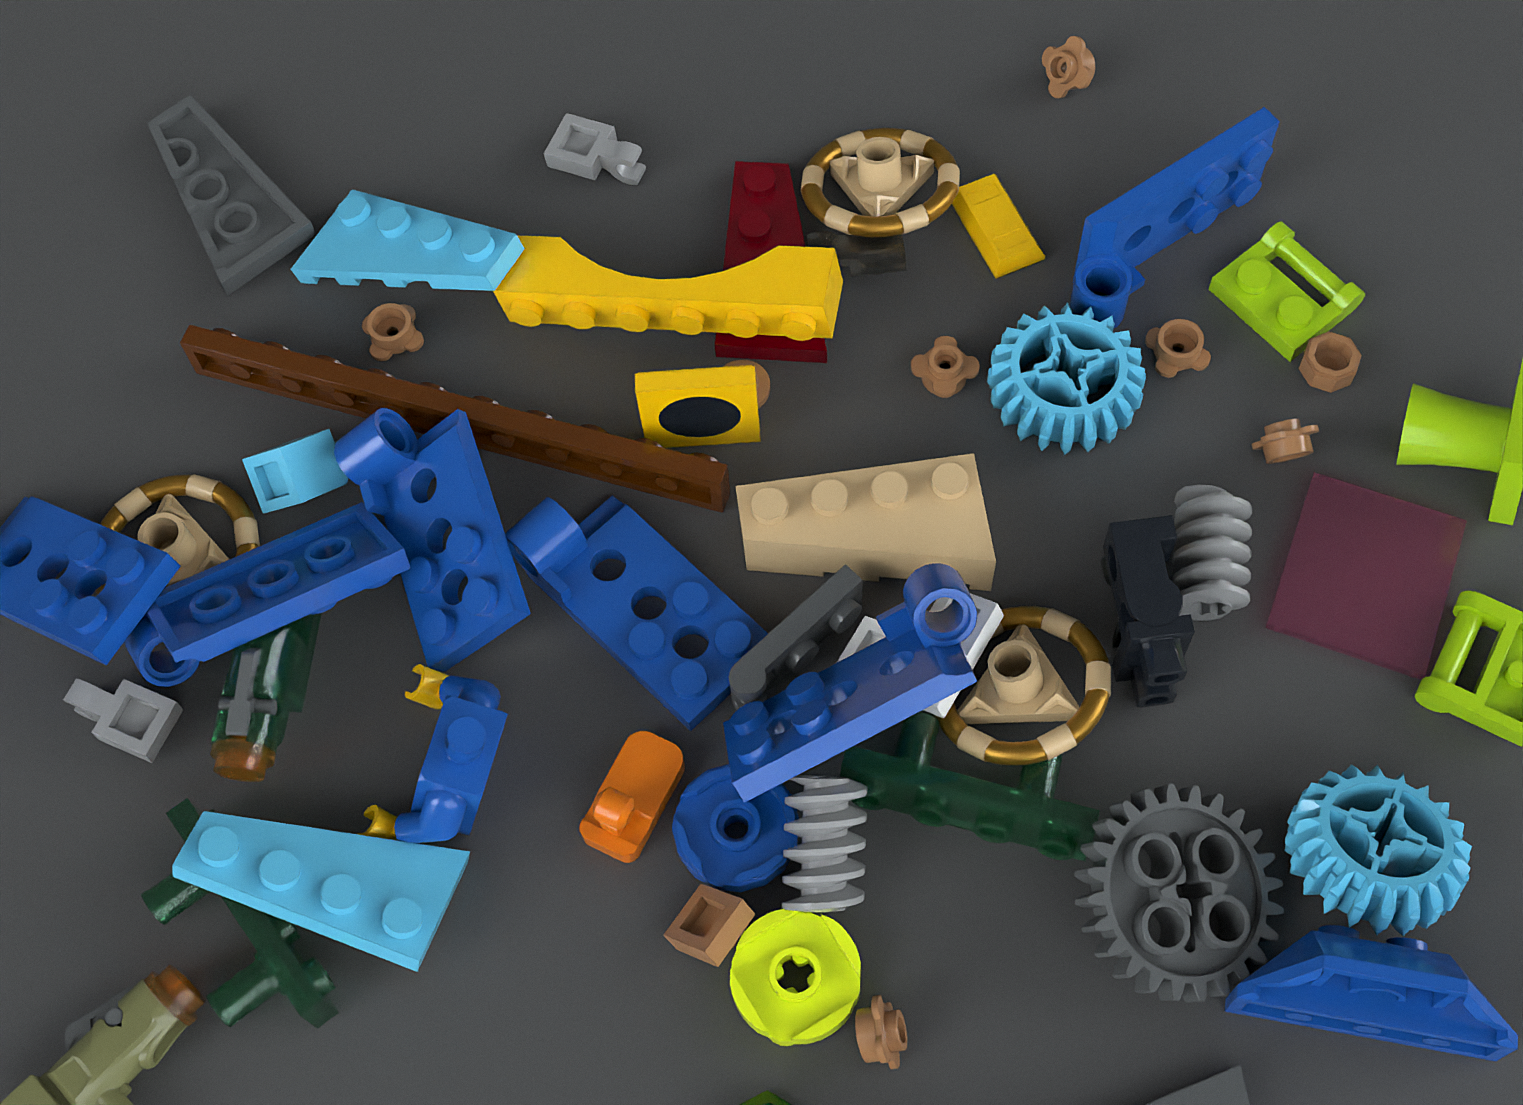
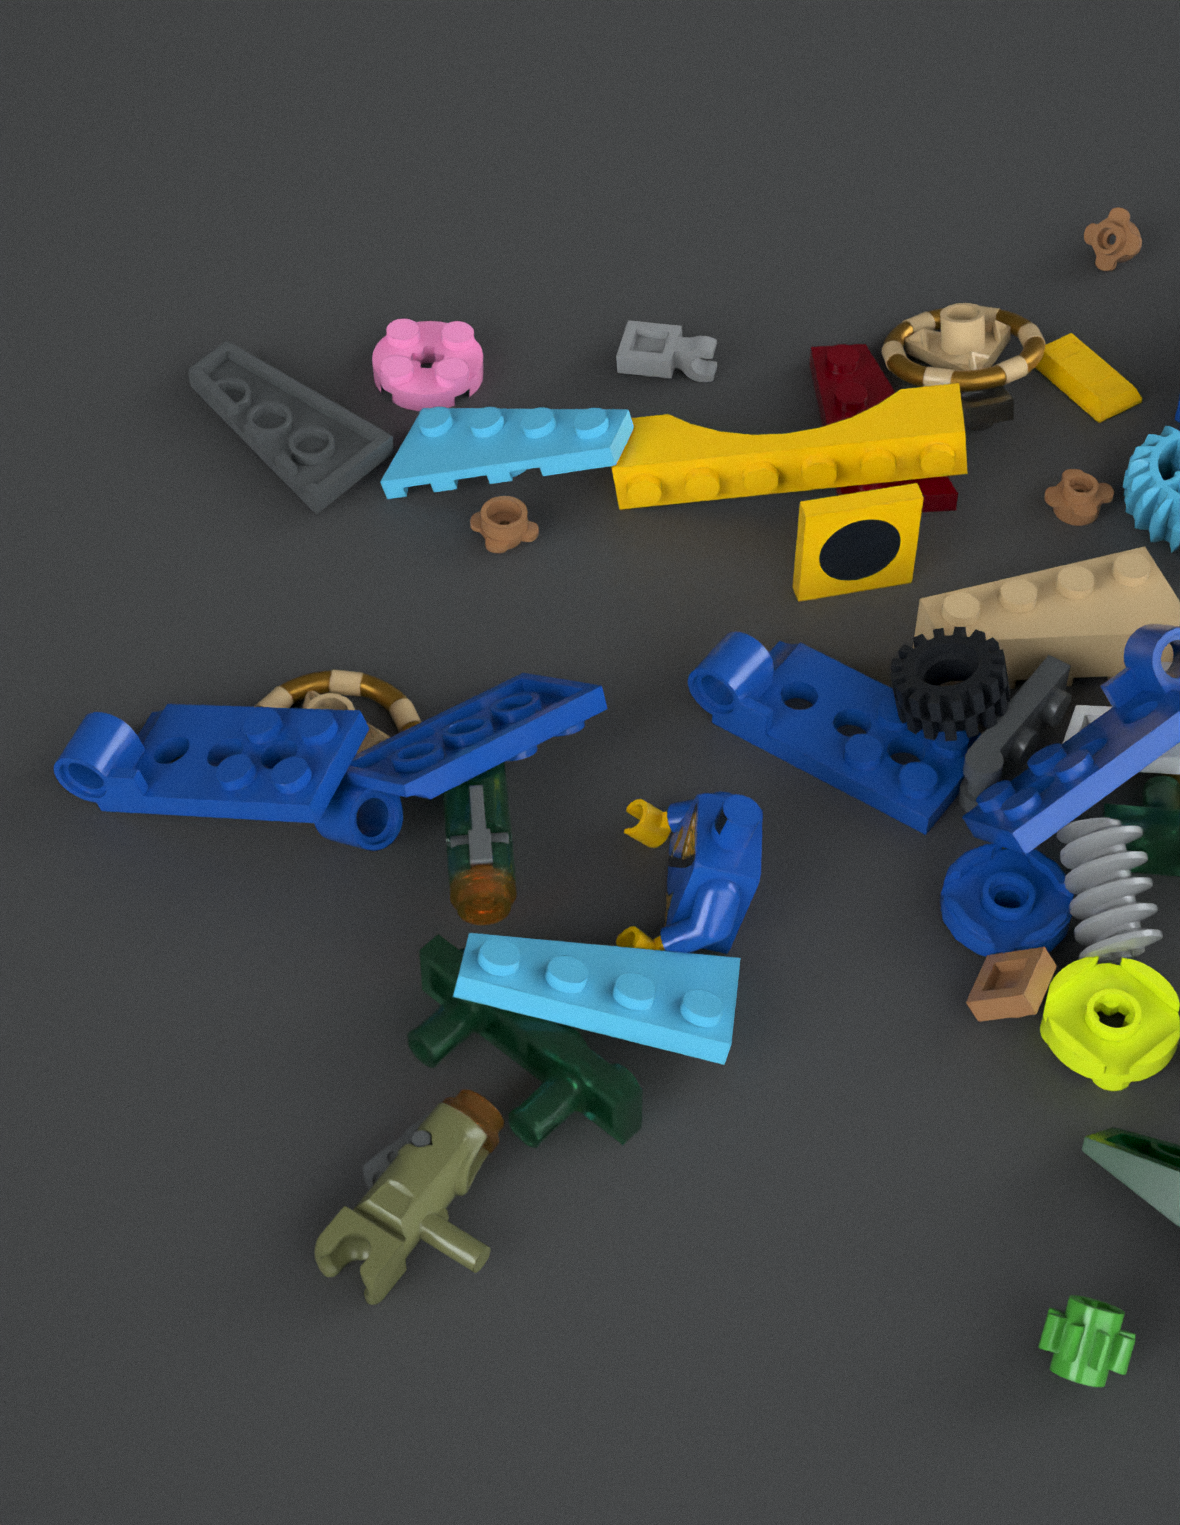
camera: 15 degrees left, 15 degrees down
(129, 719) = (335, 889): light grey plate -> none
(295, 471) = (445, 650): medium azure panel -> none
(369, 112) = (408, 344): none -> bright pink plate
(394, 482) = (558, 645): blue hinge -> none
(496, 428) = (599, 587): reddish brown plate -> none
(633, 796) = (889, 893): orange piece -> none
(727, 562) = (955, 706): none -> black tyre

